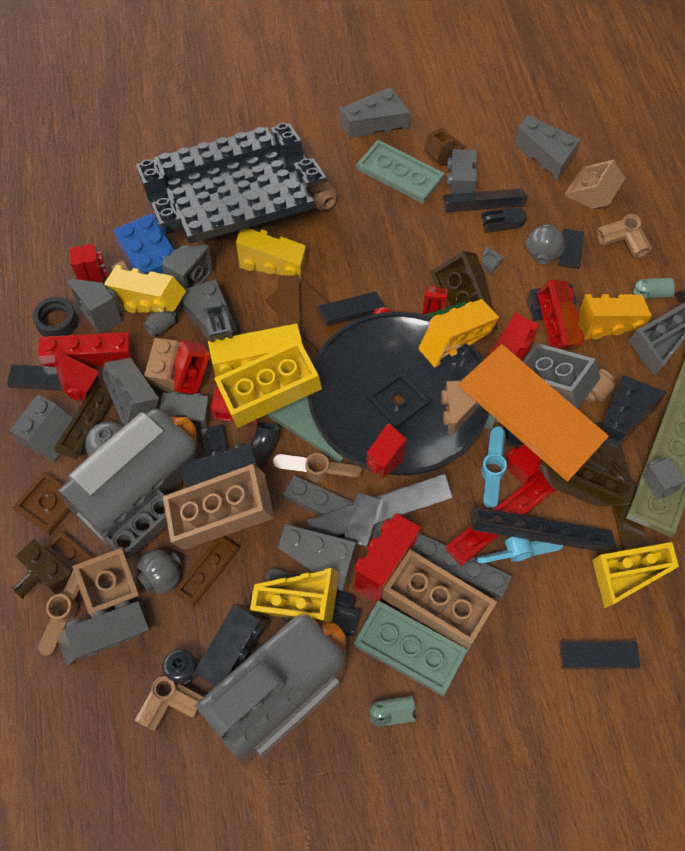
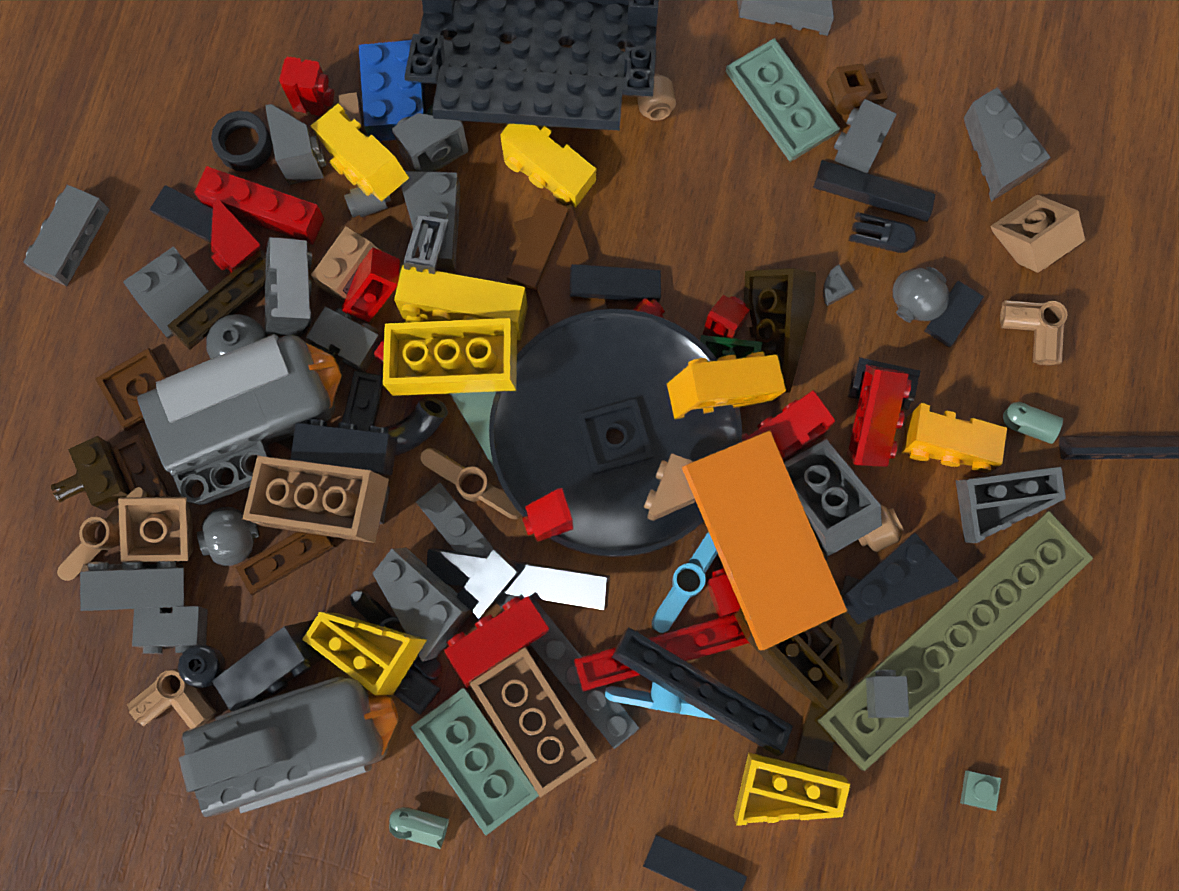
camera: 25 degrees right, 15 degrees up
(143, 654) = (161, 629): none -> dark grey brick

